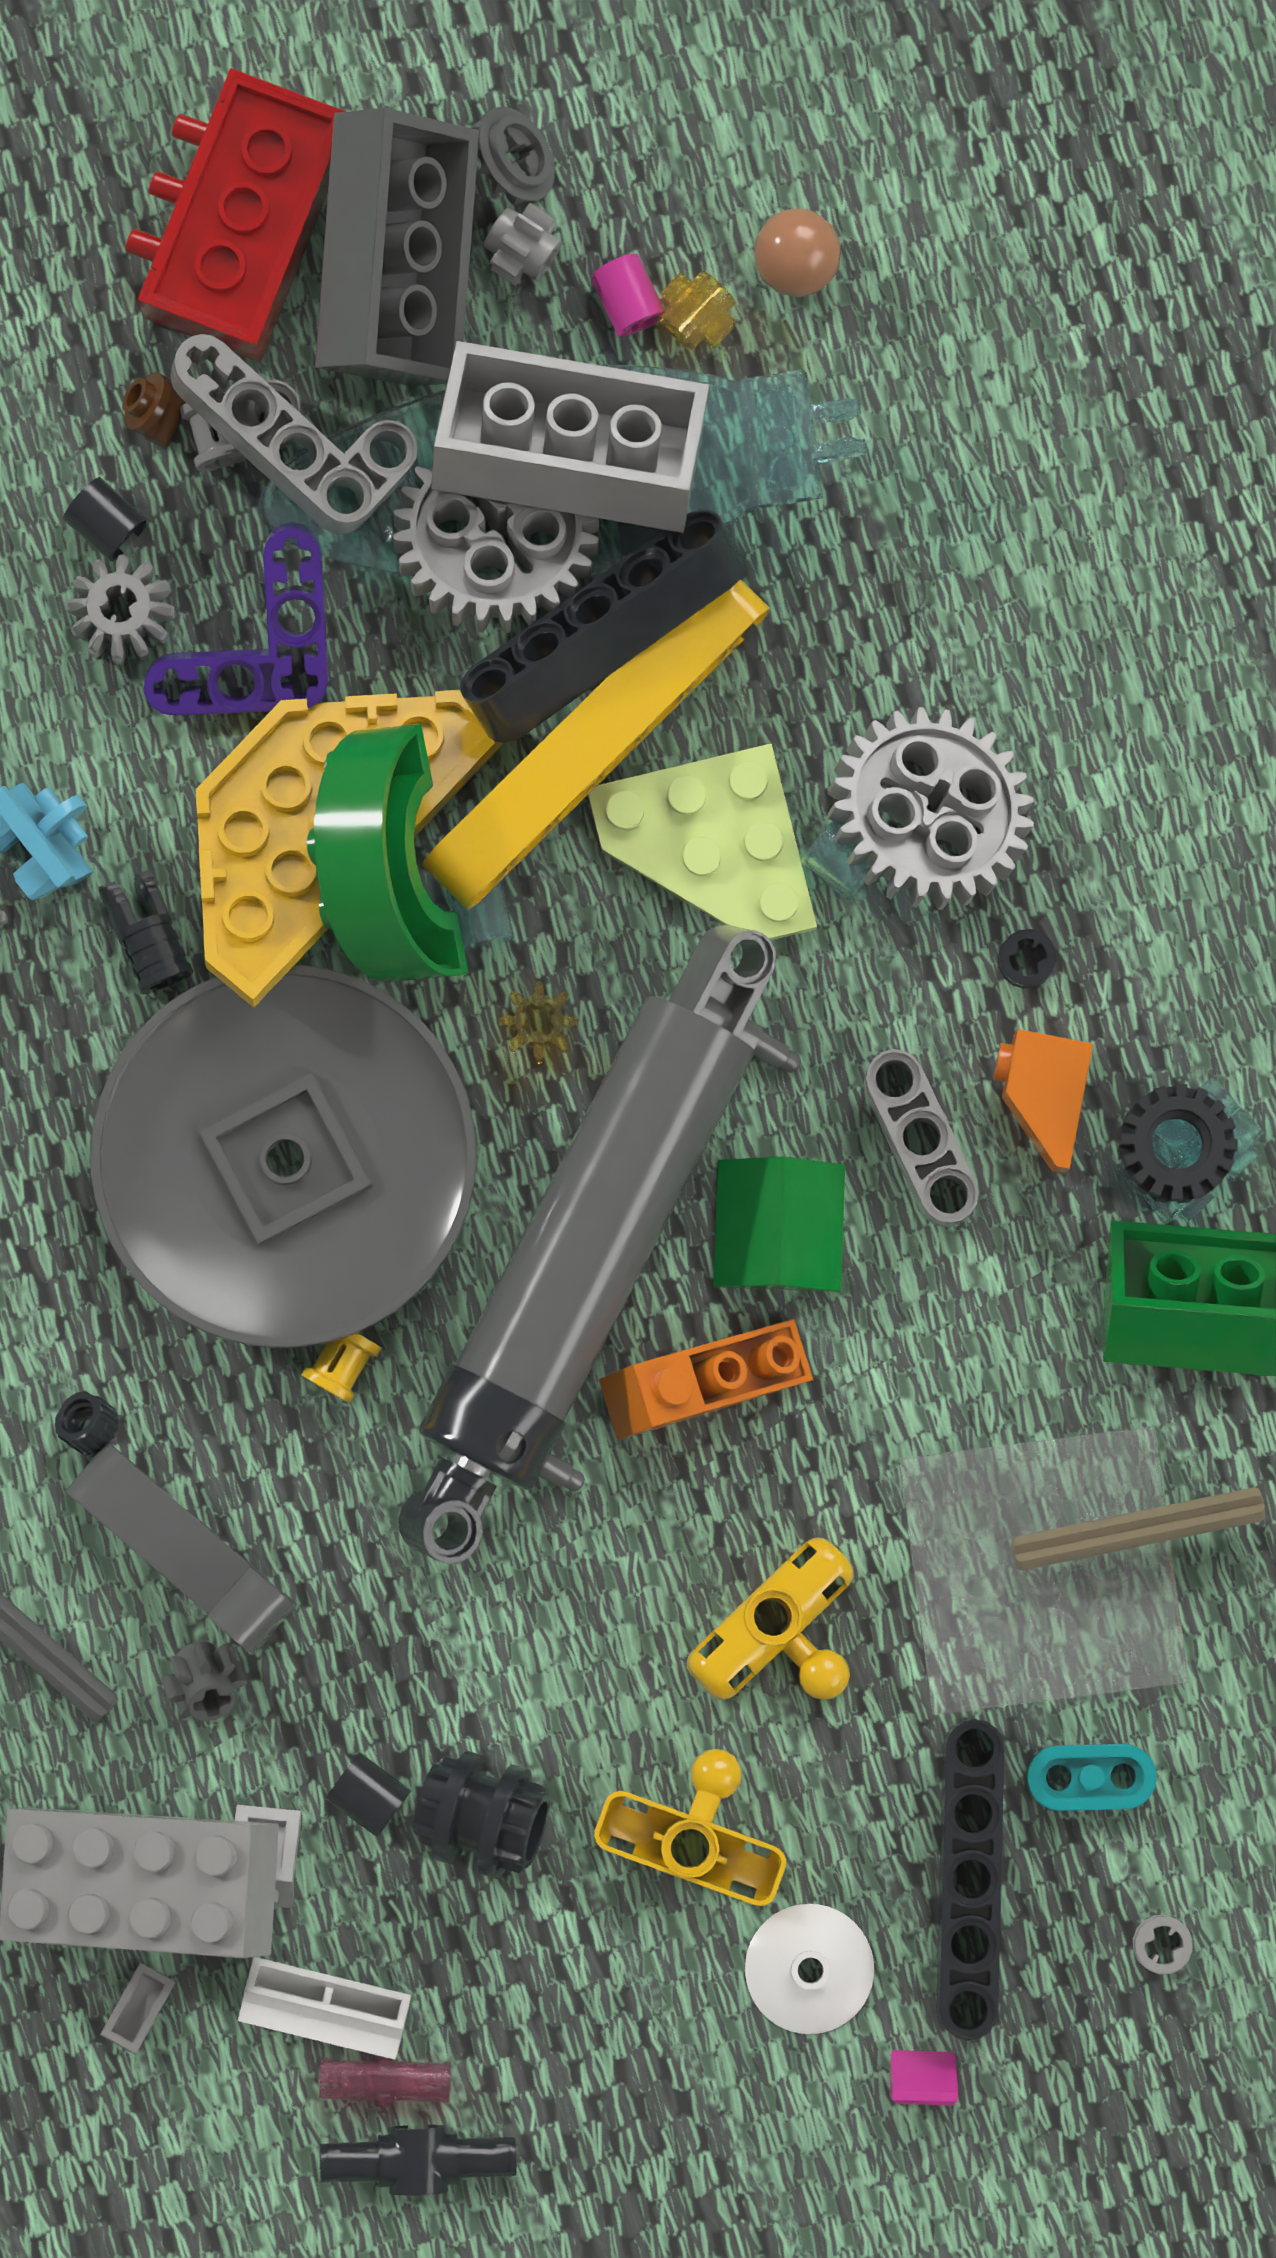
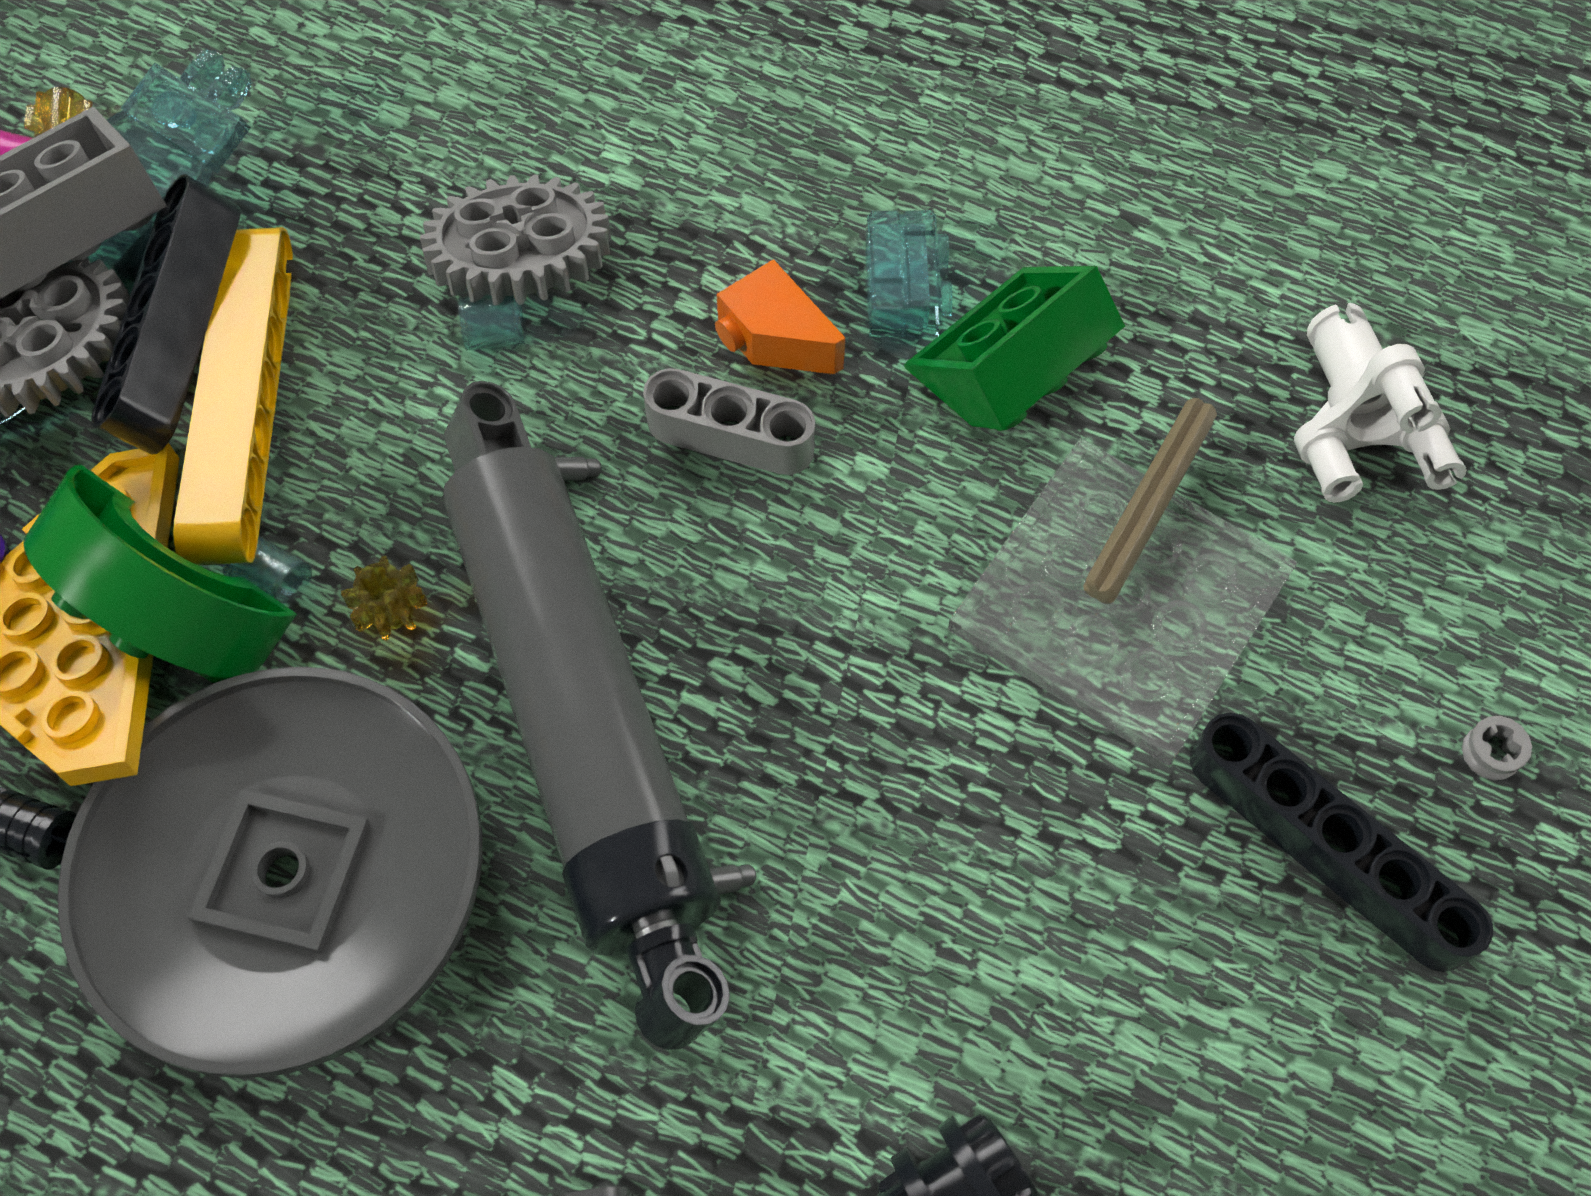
camera: 45 degrees left, 20 degrees down
(341, 1365) = (478, 973): yellow bush -> none
(704, 1379) = (755, 713): orange slope -> none
(712, 838) = (383, 390): yellowish green plate -> none
(715, 1776) = (1093, 1053): yellow piece -> none
(779, 1224) = (693, 566): green slope -> none
(797, 252) = (100, 44): nougat piece -> none
(799, 1591) = (993, 780): yellow piece -> none
(801, 1934) = (1286, 1058): white dish -> none
(923, 2077) = (1486, 1021): dark pink slope -> none
(1010, 949) = (673, 257): black bush -> none
(1090, 1777) = (1316, 693): teal plate -> none
(1195, 1108) = (901, 225): black tyre -> none

